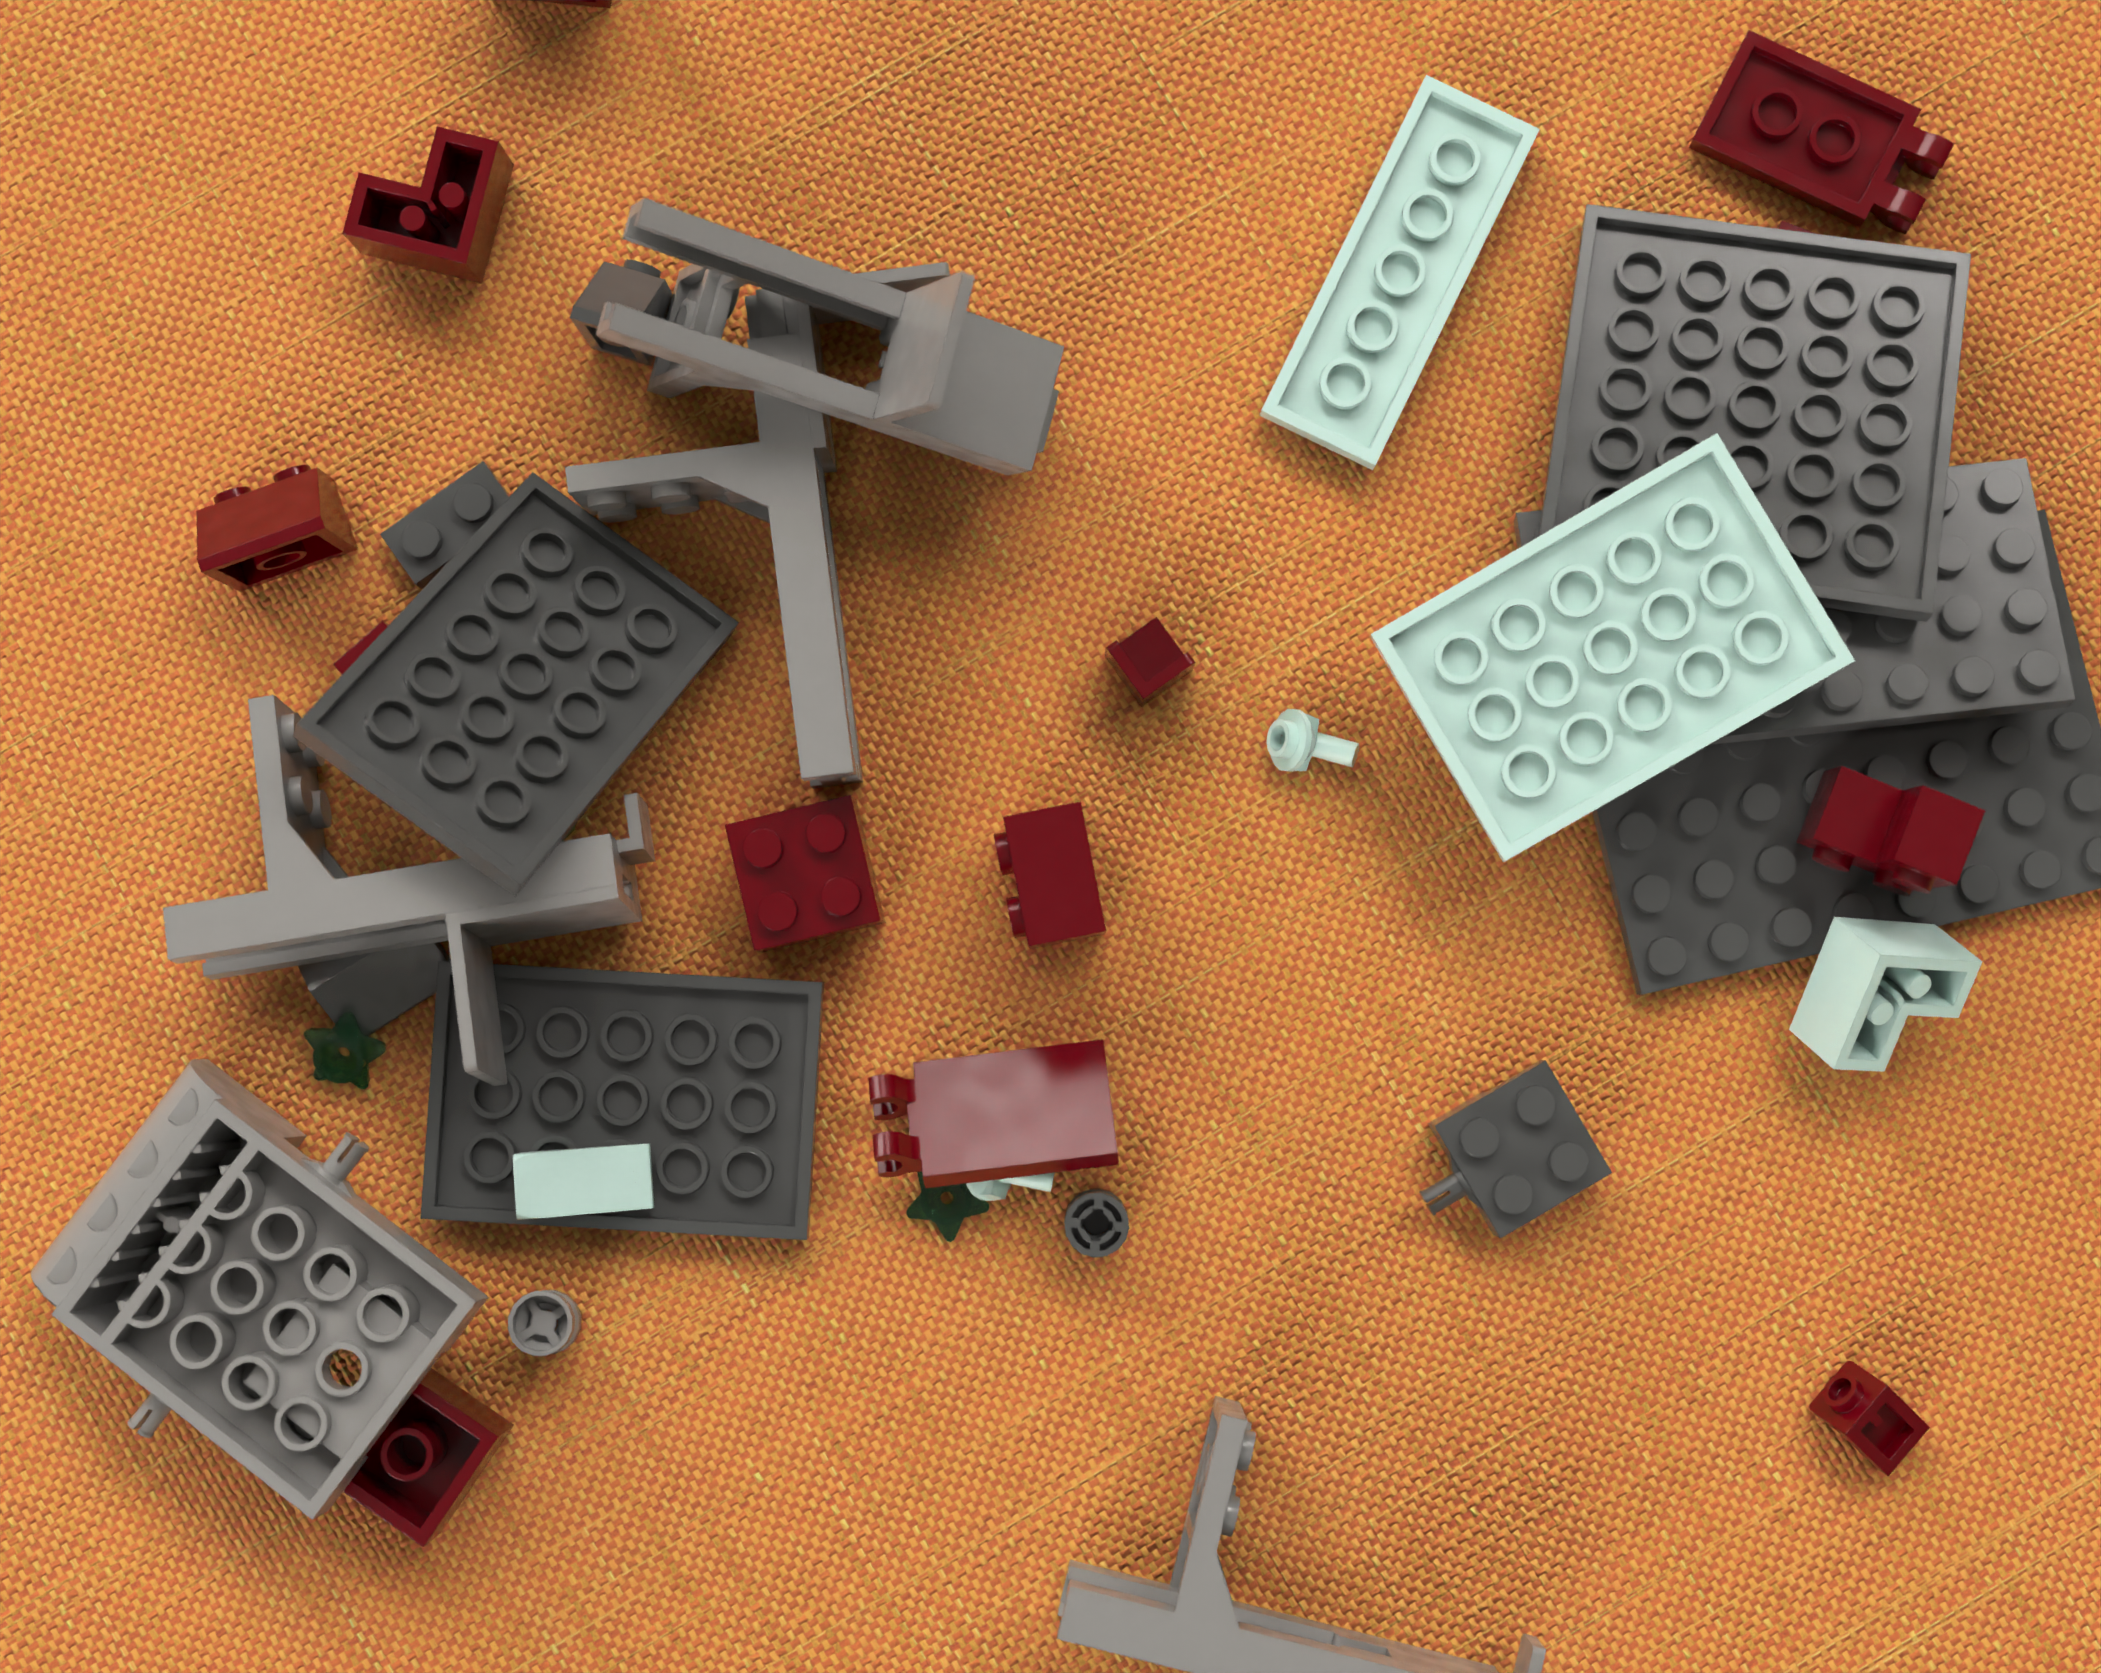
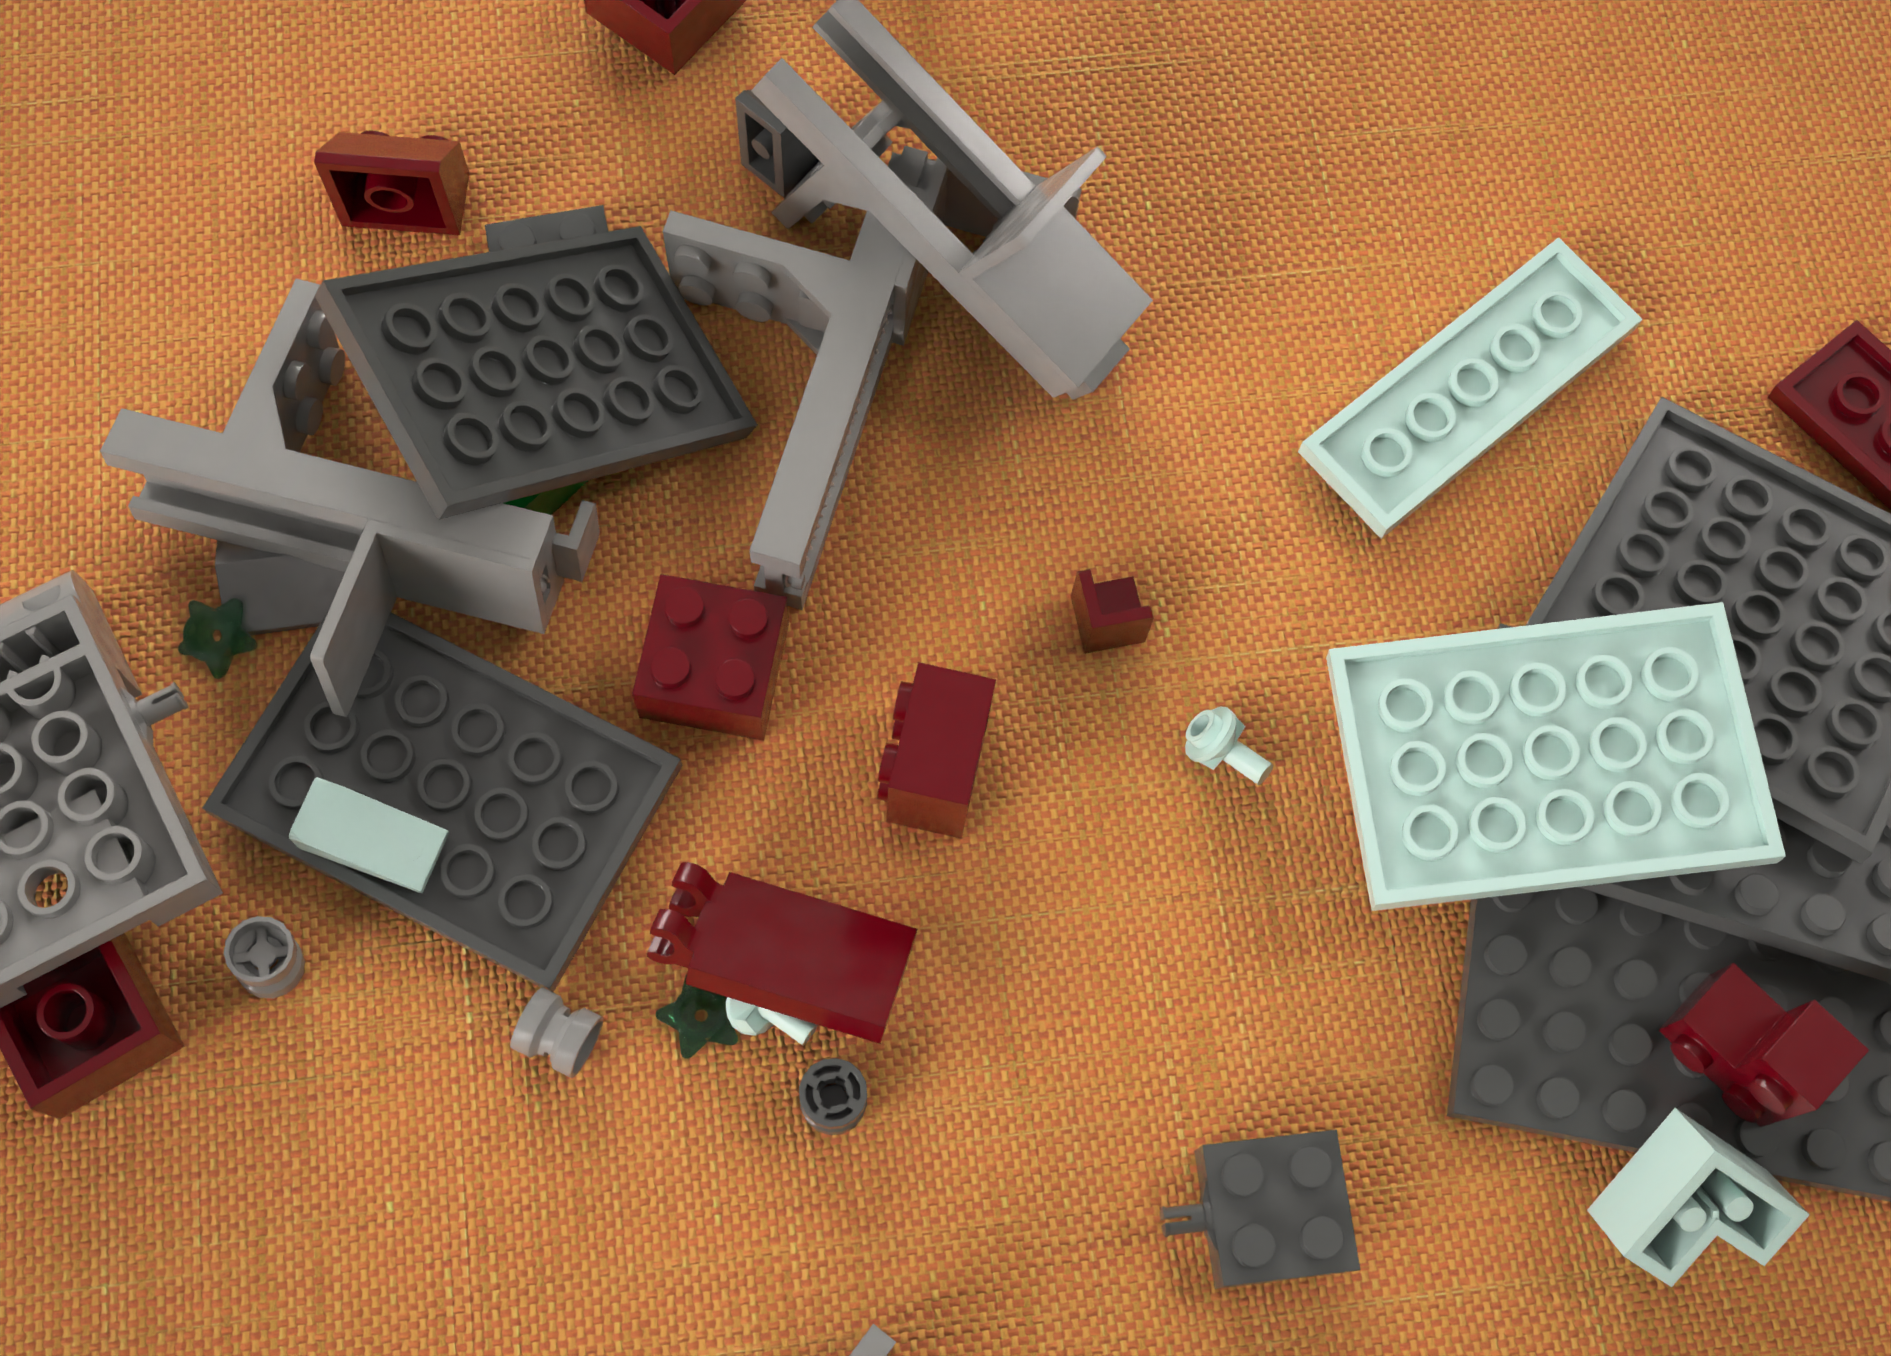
camera: 10 degrees right, 15 degrees down
(830, 1273) = (550, 1029): none -> light grey wheel

